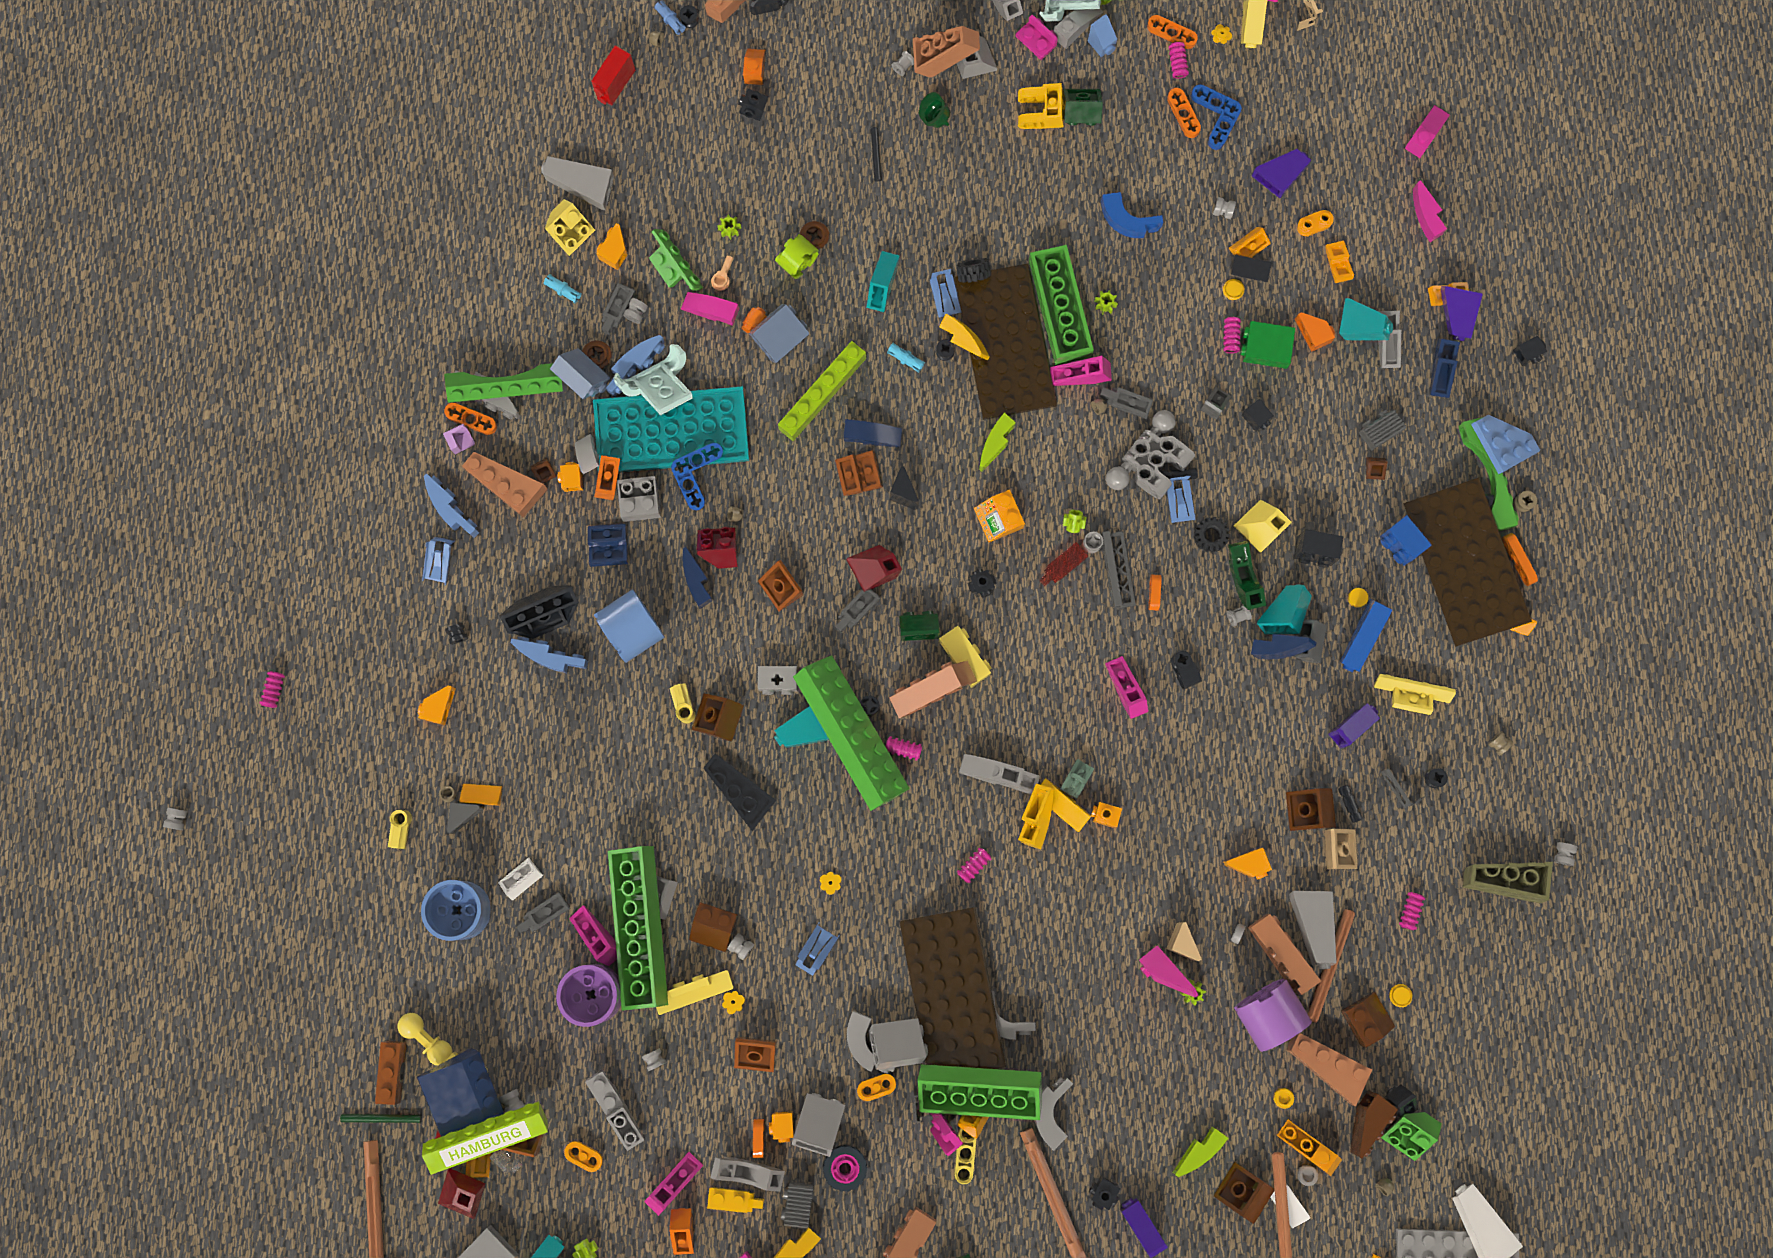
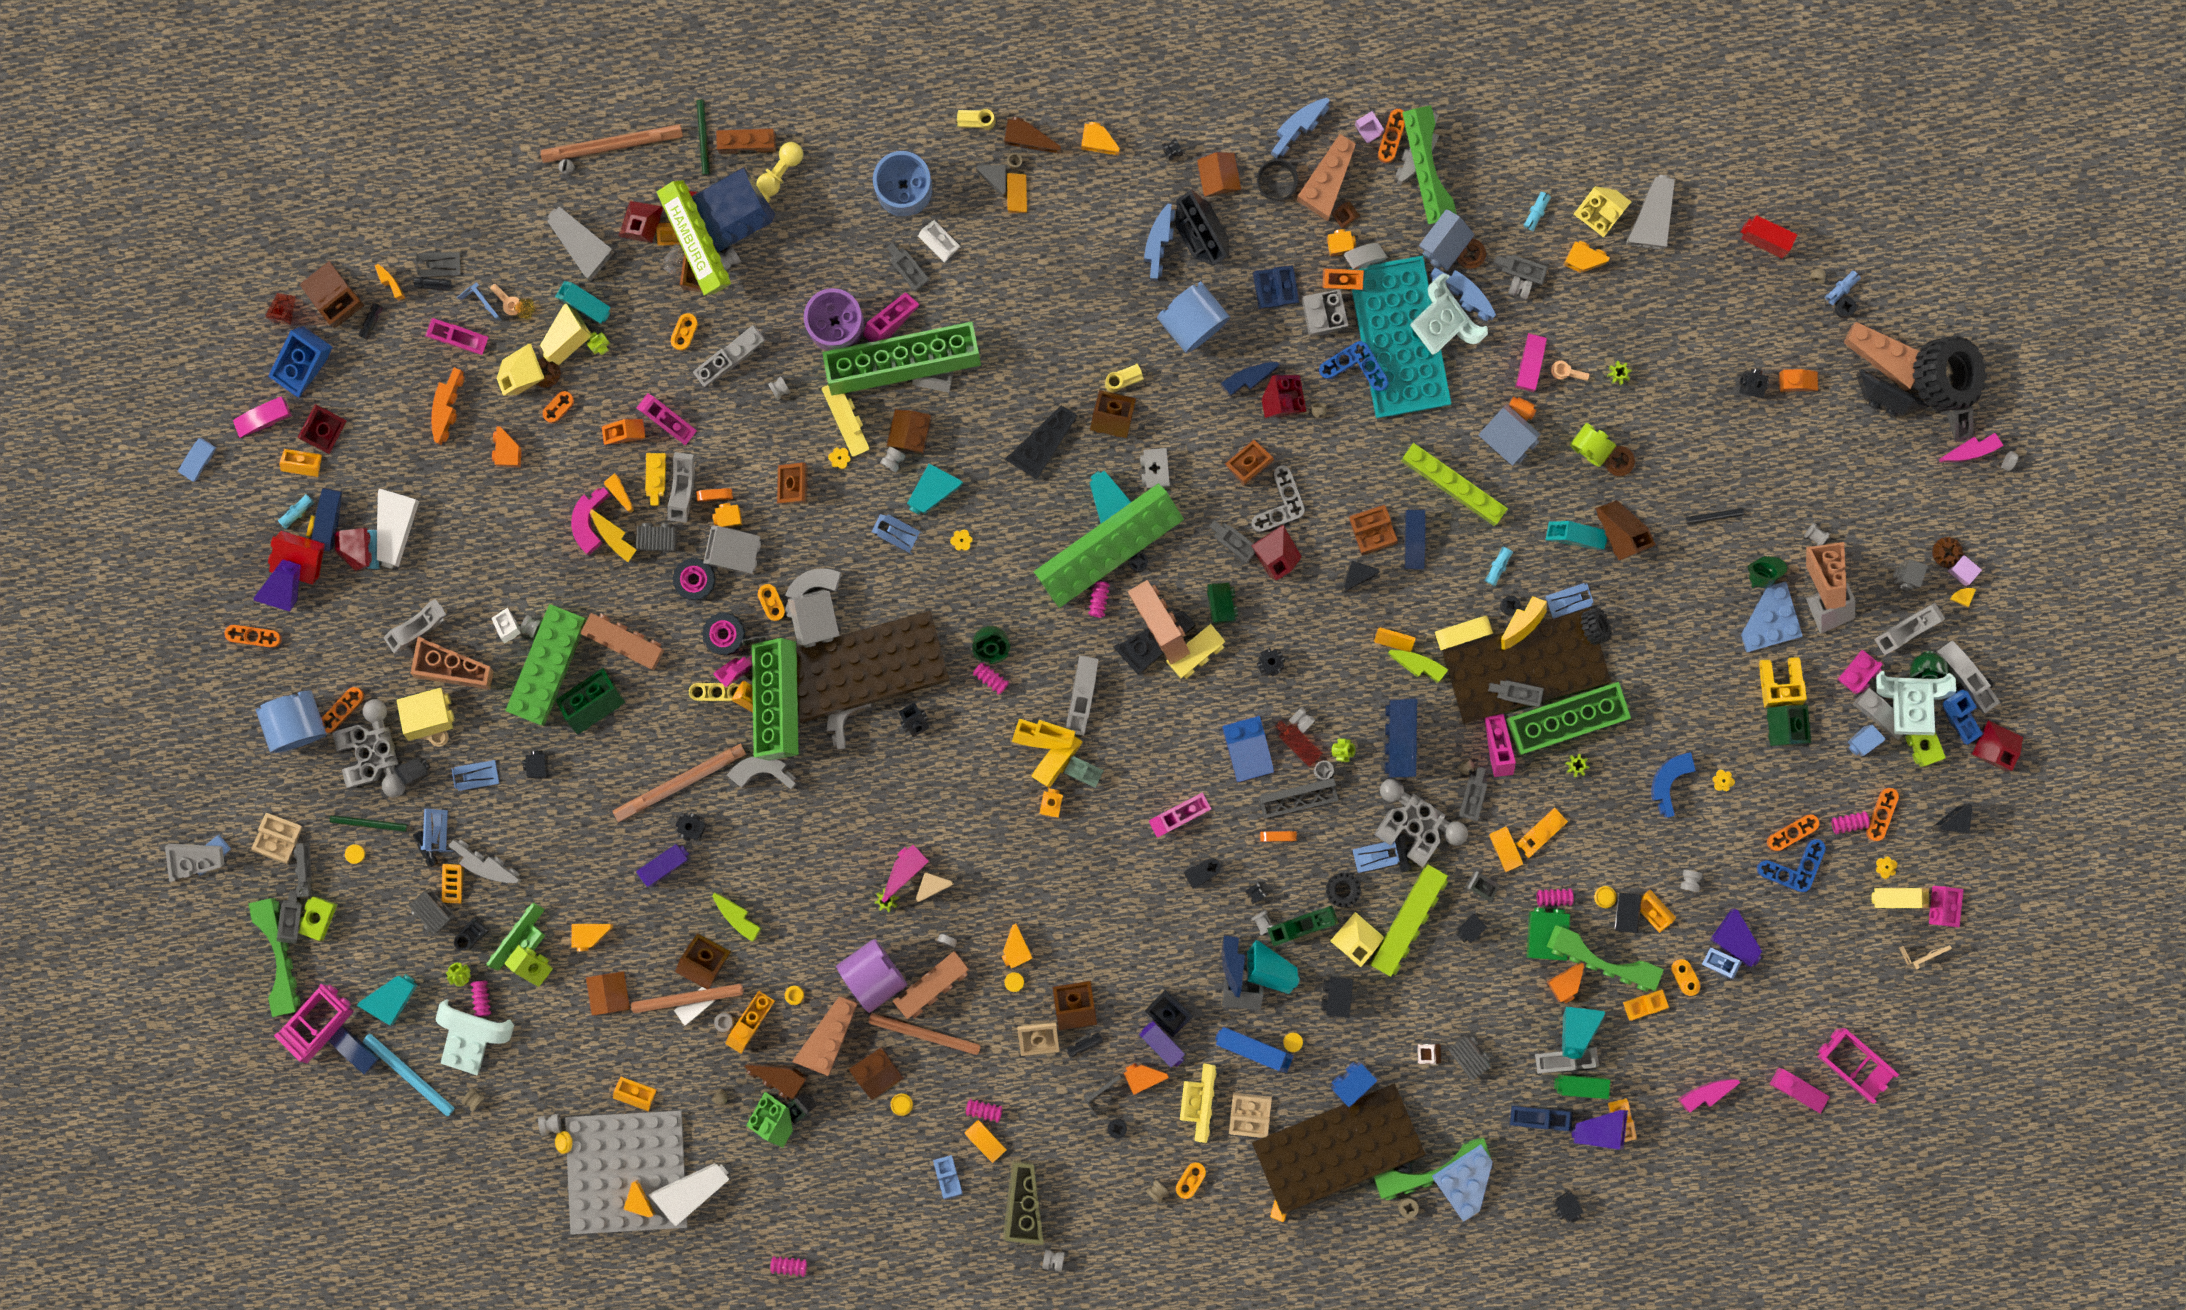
camera: 85 degrees right, 5 degrees up
(423, 779) = (1026, 136): none -> reddish brown slope
(436, 571) = (1249, 114): medium blue piece -> none
(487, 590) = (1218, 173): none -> dark orange slope
(488, 520) = (1286, 164): none -> black tyre
(671, 264) = (1575, 318): bright green bracket -> none
(740, 1244) = (615, 486): none -> light orange slope
(775, 908) = (932, 489): none -> teal slope
(837, 554) = (1285, 509): none -> light grey beam
(886, 232) = (1624, 530): none -> reddish brown slope
(911, 1152) = (732, 642): none -> black wheel
(941, 861) = (990, 645): none -> dark green cylinder
(957, 708) = (1143, 649): none -> black wing
(968, 395) = (1463, 632): none -> light yellow beam
(969, 462) = (1394, 639): none -> light orange slope
(980, 111) = (1772, 620): none -> medium blue plate
(999, 516) = (1341, 674): light orange slope -> none
(1011, 948) = (916, 723): none -> black brick
(1032, 348) = (1518, 693): none -> dark grey hinge
(1041, 558) = (1302, 720): none -> light grey wheel
(1065, 614) = (1248, 748): none -> slope
(1069, 461) = (1401, 738): none -> dark blue slope
(1129, 175) = (1720, 775): none -> yellow plant
(1167, 342) = (1542, 832): none -> light orange plate
(1181, 376) = (1506, 849): none -> light orange slope
(1209, 618) = (1256, 892): none -> black wheel
(1246, 474) = (1408, 920): none -> lime brick
(1280, 323) = (1570, 943): none -> bright green arch
(1283, 869) = (1014, 982): none -> yellow tile
(1305, 186) = (1721, 963): none -> medium blue slope
(1316, 922) = (966, 1015): light grey slope -> none
(1323, 715) = (1169, 1013): none -> black slope
(1386, 746) = (1143, 1077): none -> orange slope
(1417, 324) = (1582, 1086): none -> green brick
(1421, 62) = (1874, 1082): none -> dark pink door
(1427, 646) = (1250, 1115): none -> tan slope
(1442, 913) = (985, 1141): none -> light orange slope
(1477, 954) = (947, 1177): none -> medium blue slope
(1489, 709) = (1190, 1180): none -> light orange plate
(1522, 562) = (1343, 1206): orange beam -> none
(1562, 1128) = (788, 1266): none -> dark pink piece

